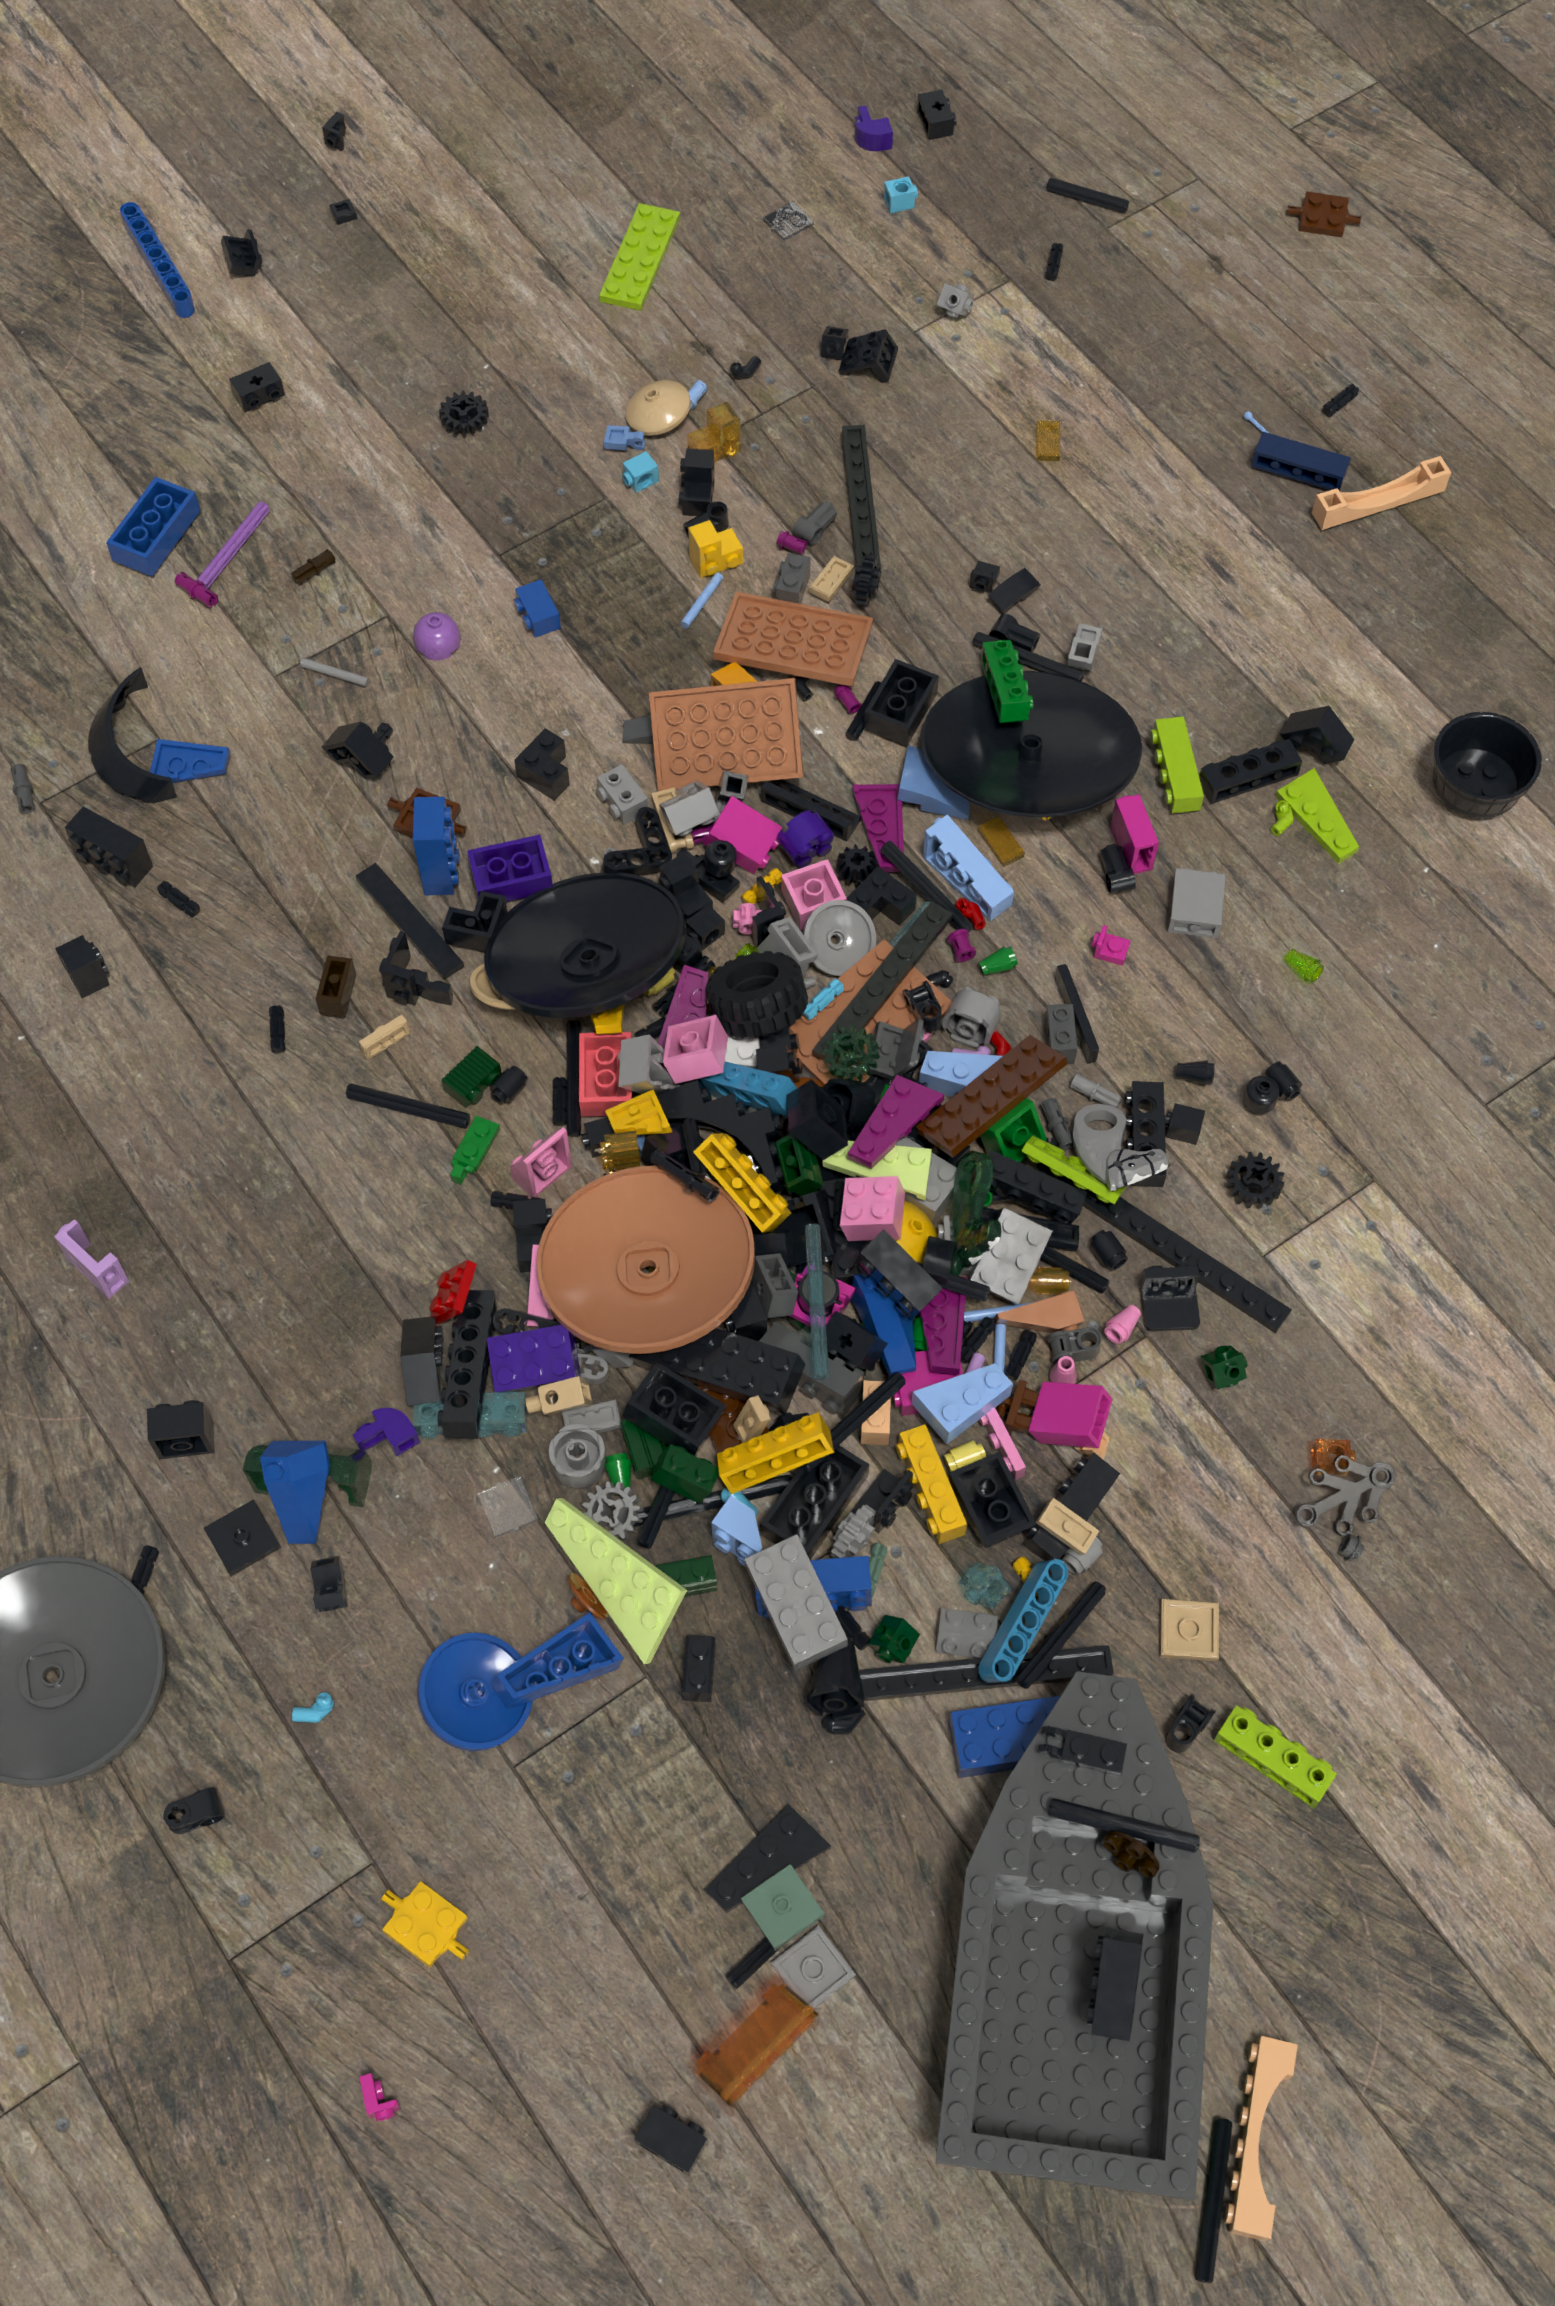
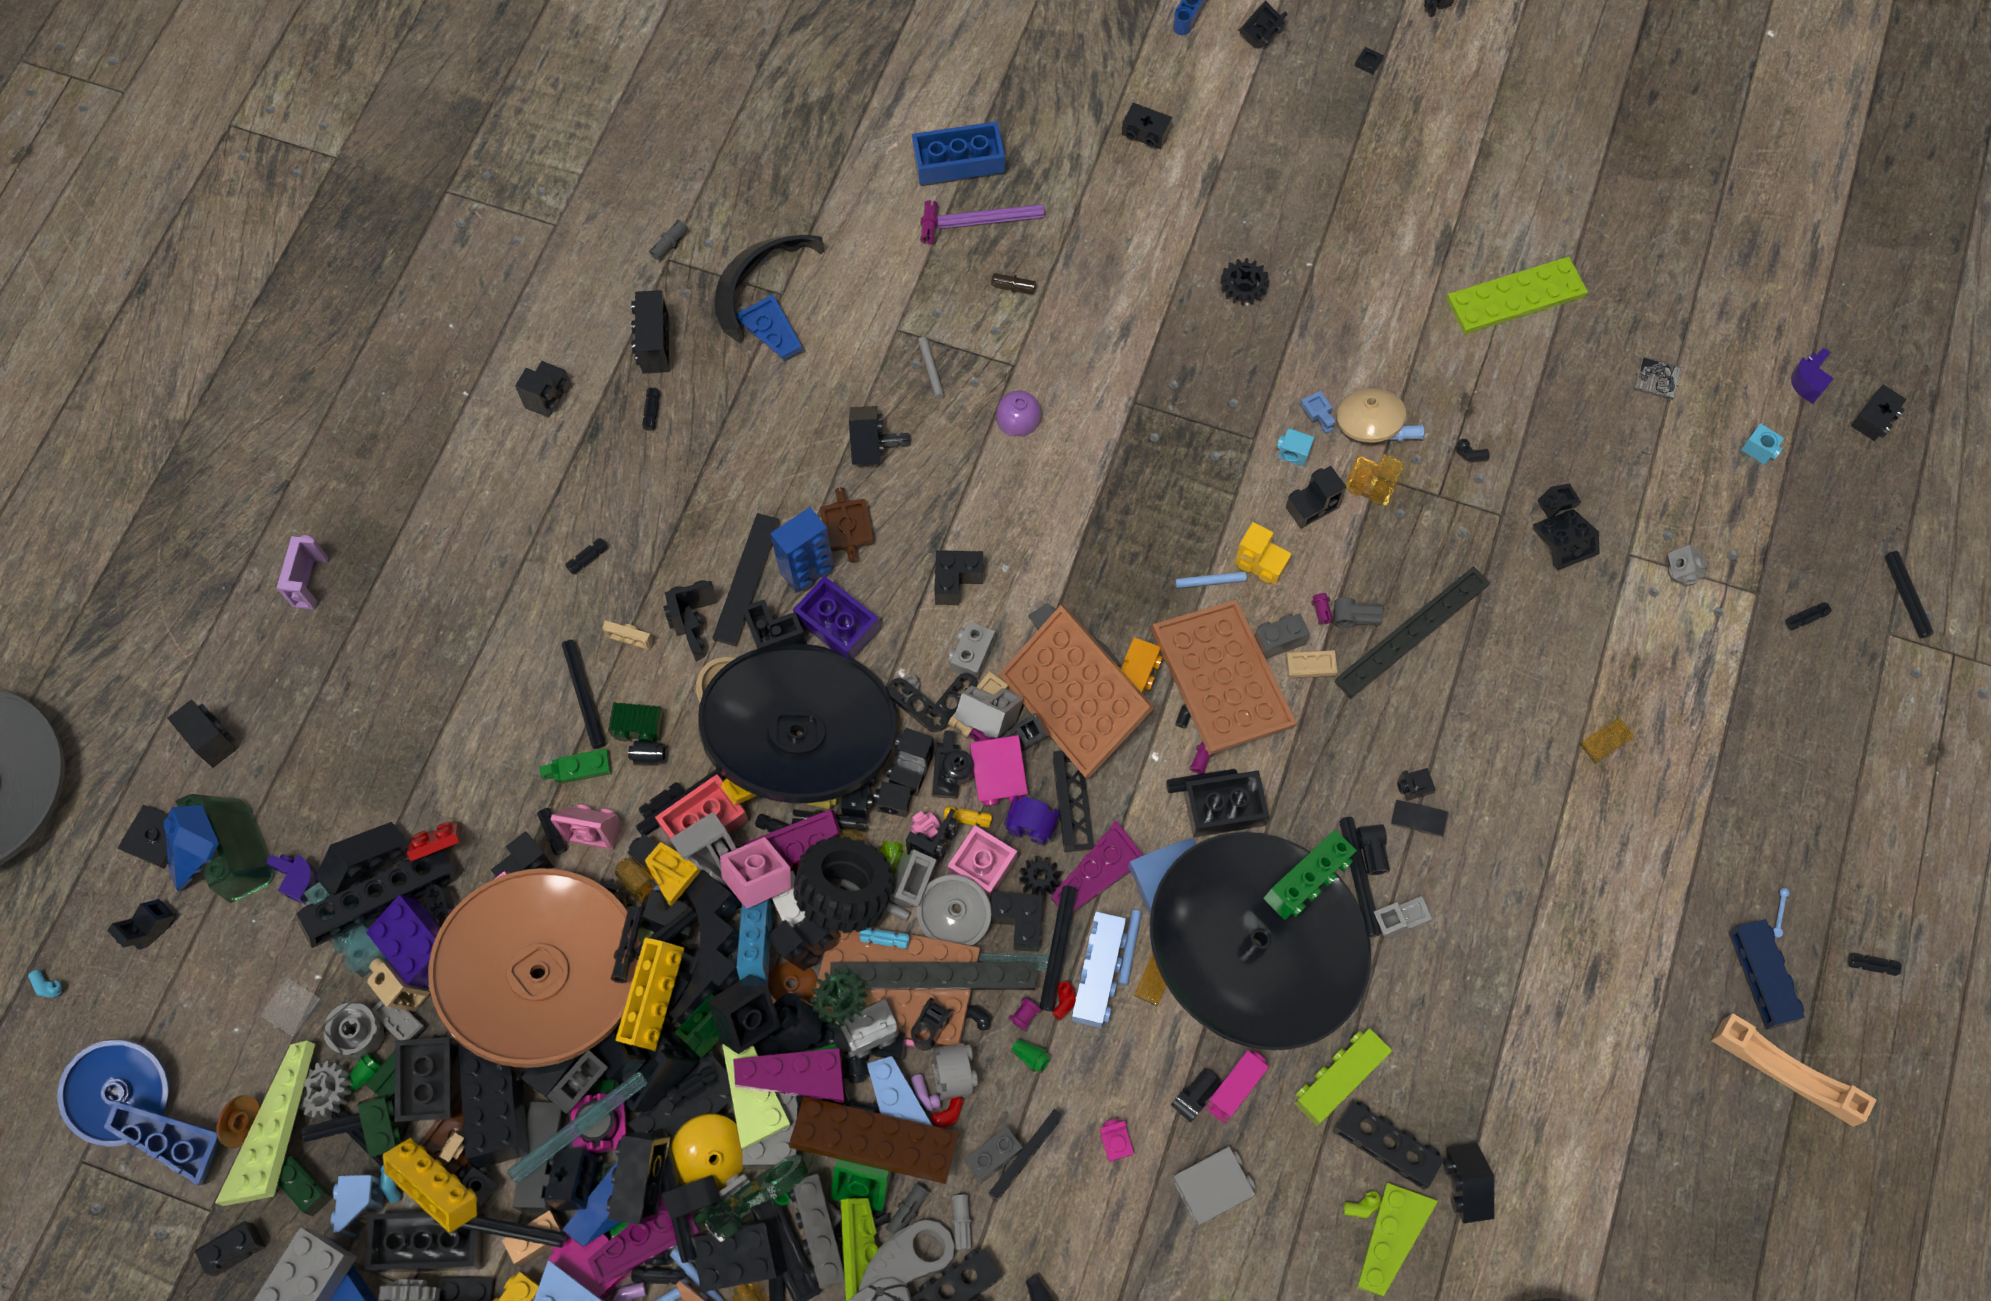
camera: 55 degrees right, 5 degrees up
(144, 1567) = (86, 789): black axle -> none
(336, 986) = (644, 570): dark brown brick -> none
(537, 608) = (1100, 465): blue brick -> none
(716, 513) = (1286, 530): black piece -> none
(866, 580) = (1324, 693): black gear -> none
(871, 1207) = (695, 1114): bright pink brick -> none

